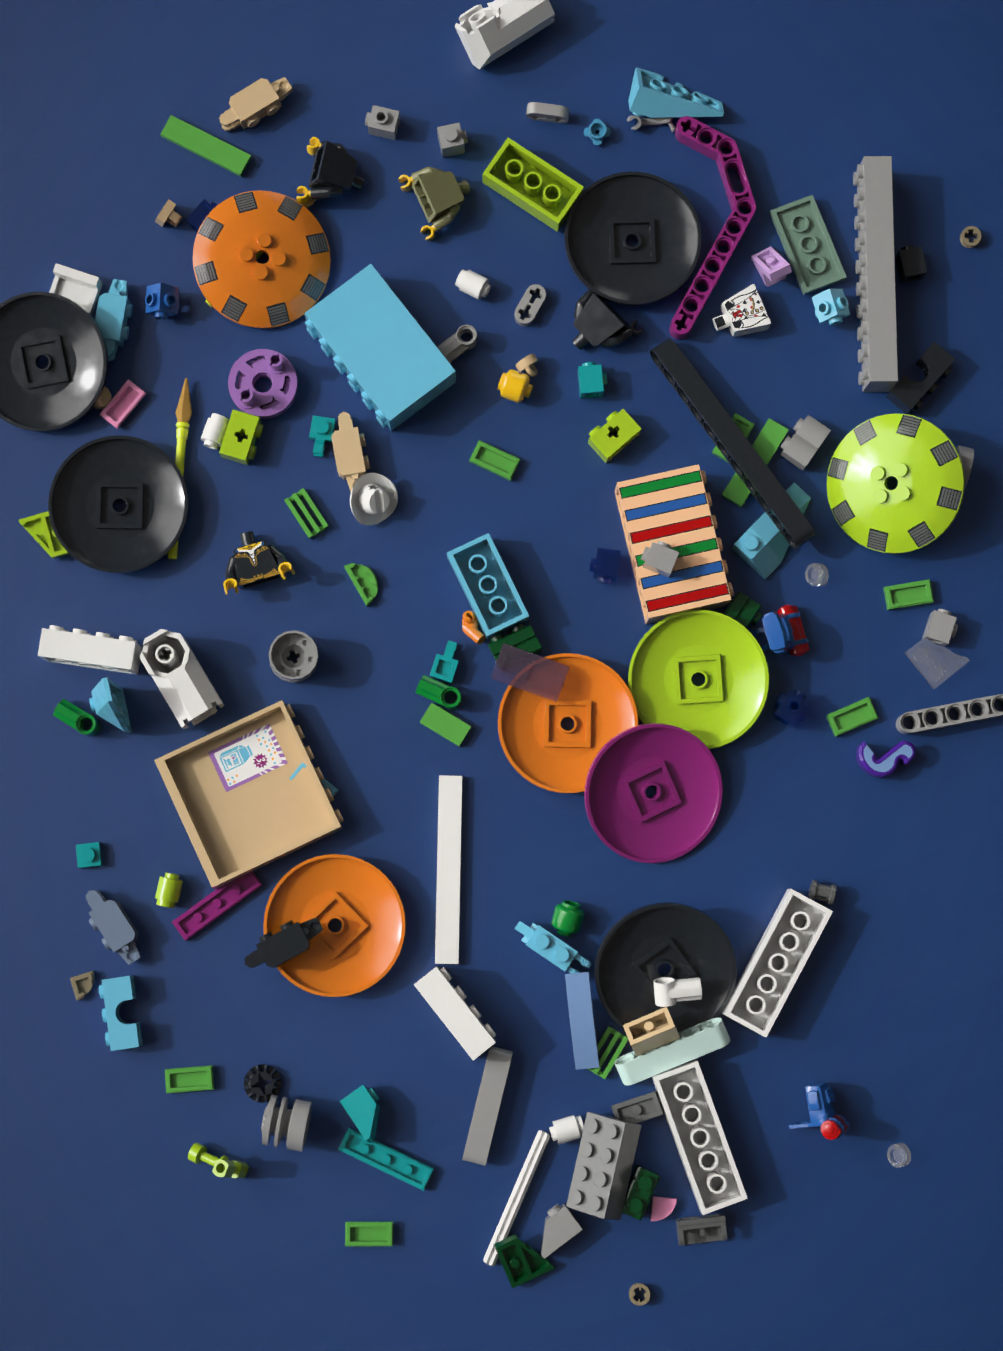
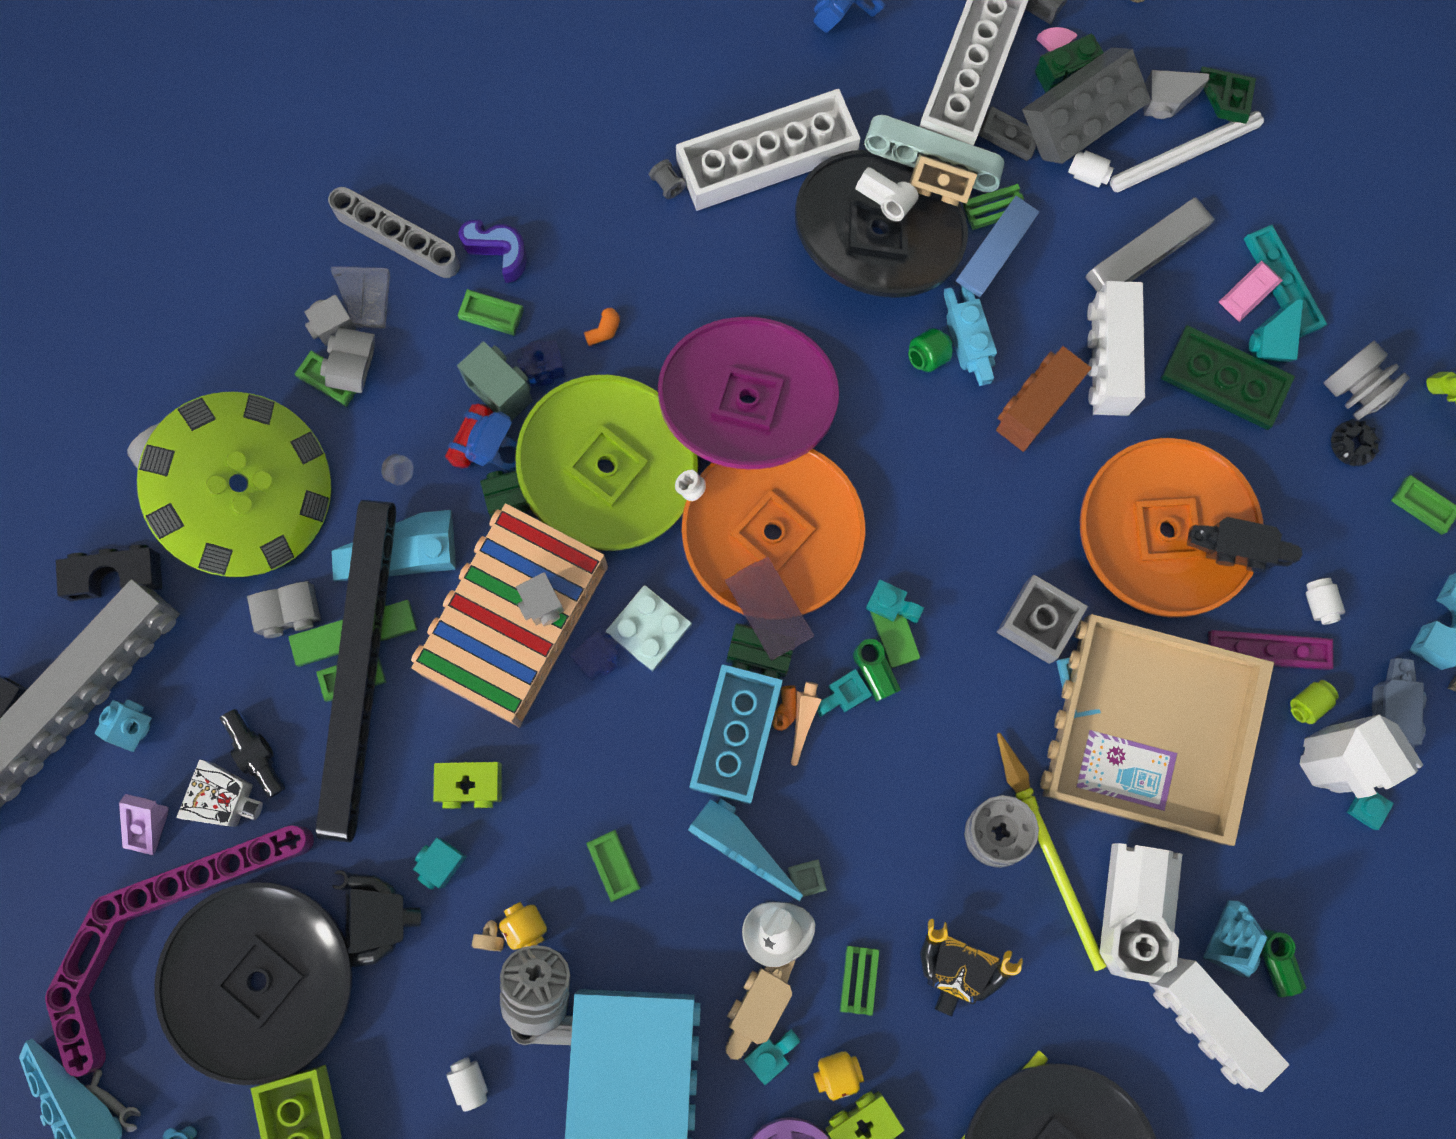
camera: 140 degrees left, 5 degrees down
(122, 865) = (1359, 756): none -> white brick
(207, 959) = (1325, 601): none -> white brick
(277, 452) = (838, 1075): none -> yellow head
(305, 699) = (1018, 779): none -> neon yellow piece
(364, 581) = (857, 853): bright green tile -> none
(367, 802) = (1042, 619): none -> light grey brick
(368, 1233) = (1354, 229): bright green tile -> none
(373, 1058) = (1227, 377): none -> dark green plate
(380, 543) = (807, 877): none -> sand green tile
(402, 1131) = (1250, 291): none -> bright pink tile
(444, 528) = (728, 834): none -> medium azure wedge
(448, 870) = (1007, 493): white tile -> none
(460, 636) = (805, 711): none -> light nougat piece
(464, 738) = (889, 602): none -> teal plate
(471, 350) = (534, 990): none -> light grey wheel
(475, 940) = (1041, 397): none -> dark orange brick
(534, 308) = (431, 1012): light grey beam -> none
(590, 607) = (648, 628): none -> light aqua plate
(643, 706) = (690, 485): none -> white bush
(747, 351) = (252, 753): none -> black pin
(773, 764) = (606, 329): none -> orange arm
(805, 670) = (495, 381): none -> sand green brick
(807, 245) = (83, 814): sand green plate -> none
(904, 613) = (348, 360): none -> light grey brick

